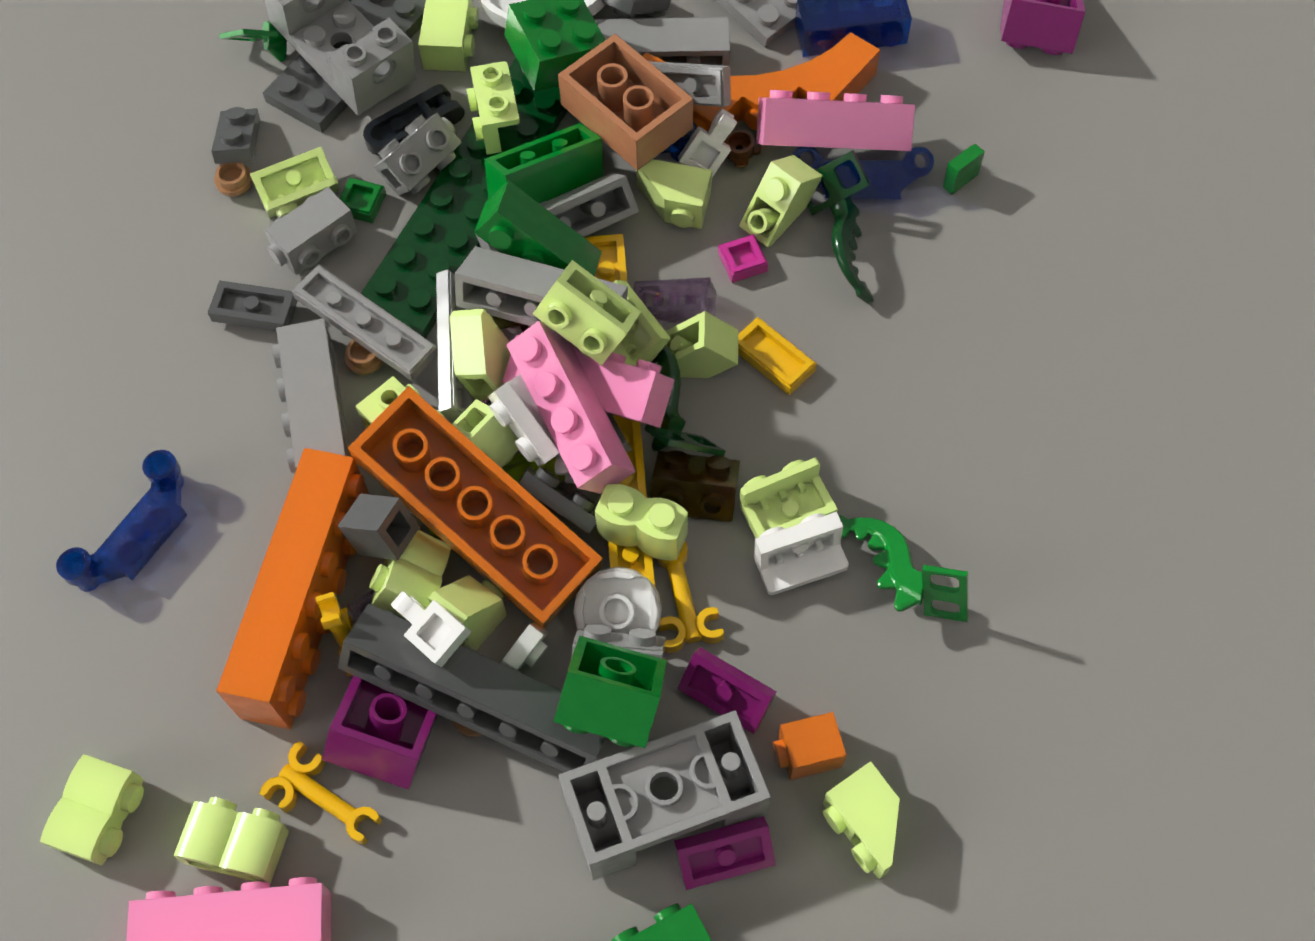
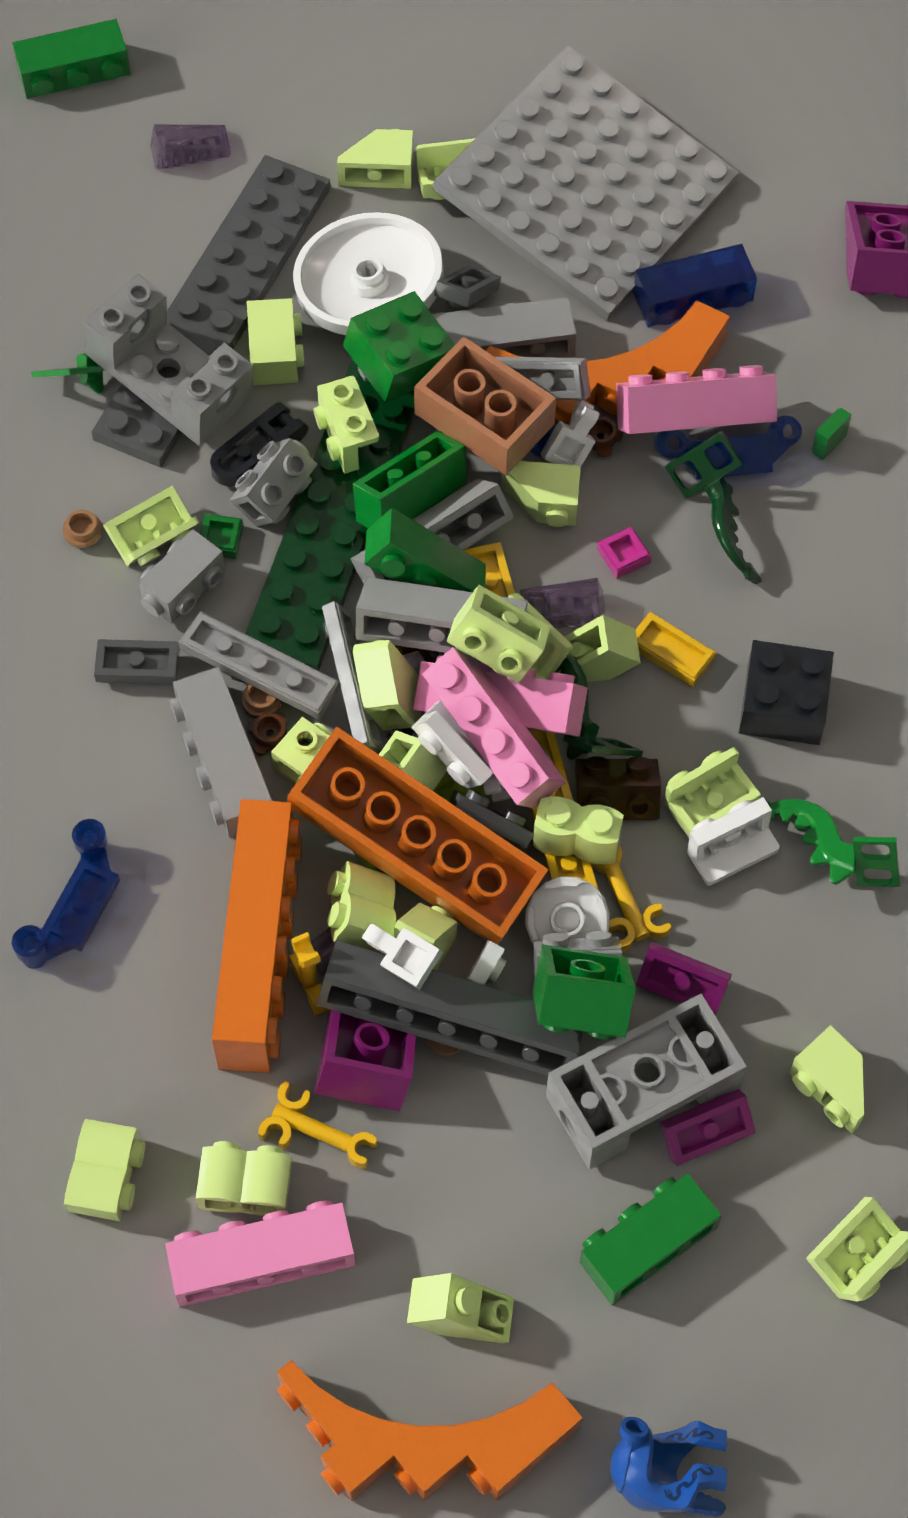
camera: 10 degrees left, 0 degrees up
(236, 135) = (76, 482): dark grey plate -> none
(359, 380) = (261, 725): none -> reddish brown plate
(379, 526) = (329, 866): dark grey brick -> none
(780, 198) = (653, 487): yellowish green slope -> none
(809, 746) = (770, 1020): orange brick -> none
(879, 410) = (786, 692): none -> black brick

